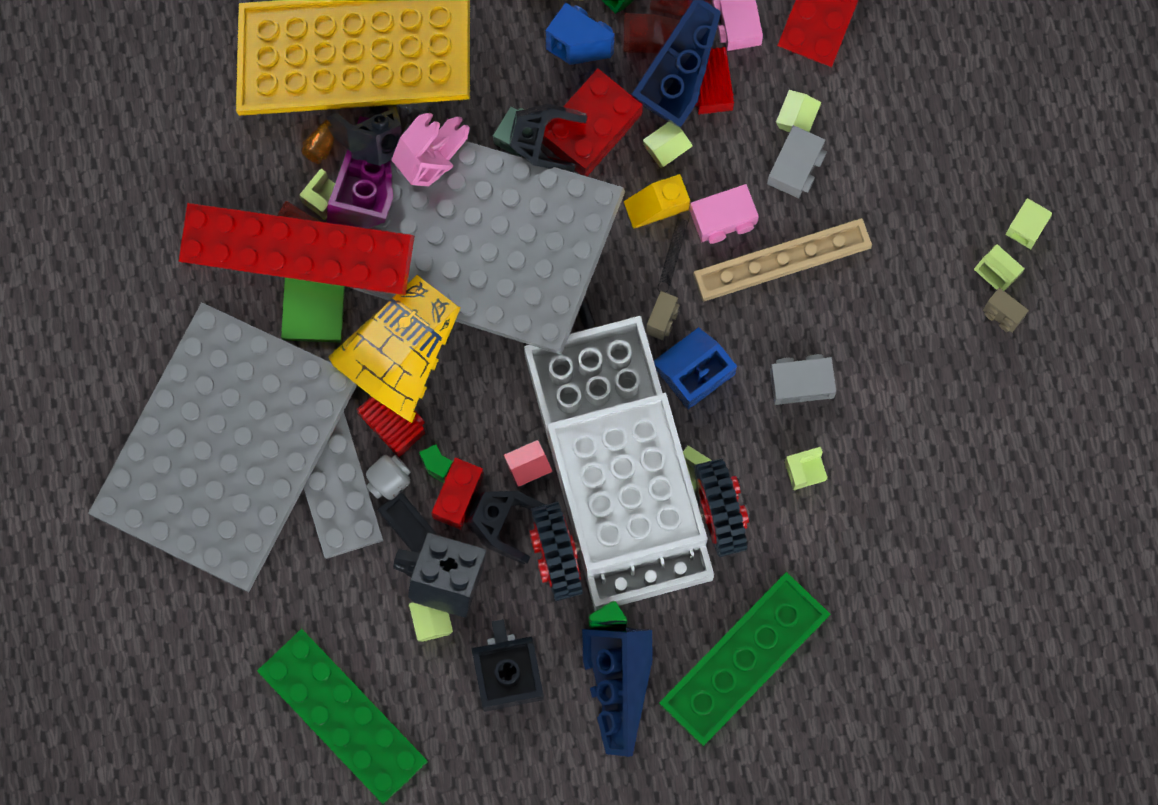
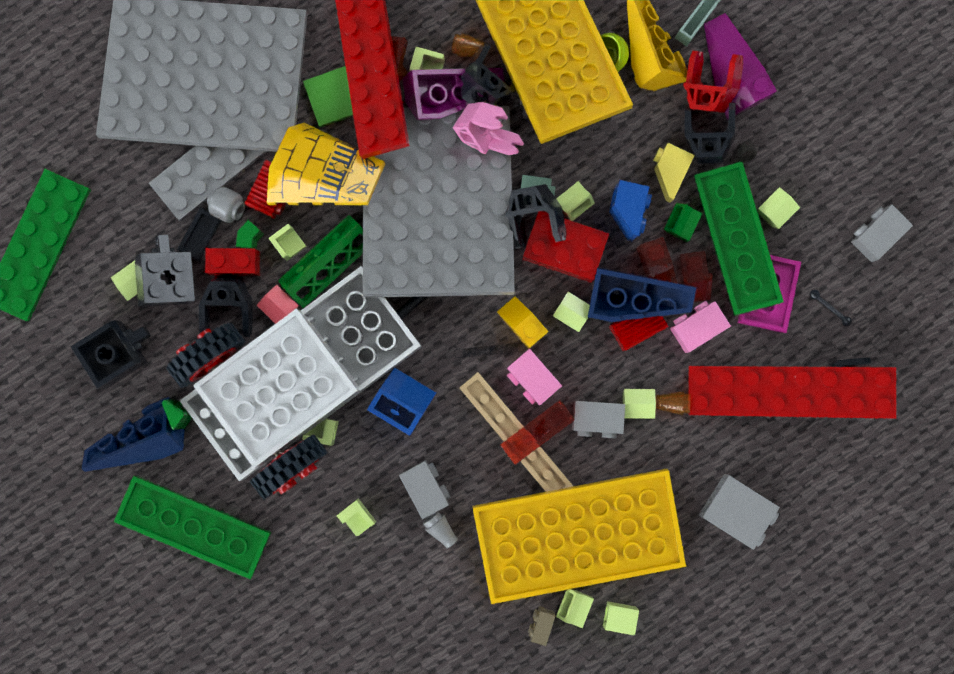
camera: 65 degrees right, 10 degrees up
(460, 425) = (287, 242): none -> yellowish green panel
(493, 392) = (322, 257): none -> green fence
(543, 91) = (575, 201): none -> yellowish green piece
(661, 318) = (431, 361): dark tan piece -> none
(786, 227) = (537, 432): none -> clear red slope
(812, 75) = (674, 402): none -> clear orange cone
(853, 382) = (440, 529): none -> light grey cone
(920, 233) = (579, 536): none -> yellow plate
(959, 53) = (740, 511): none -> light grey brick

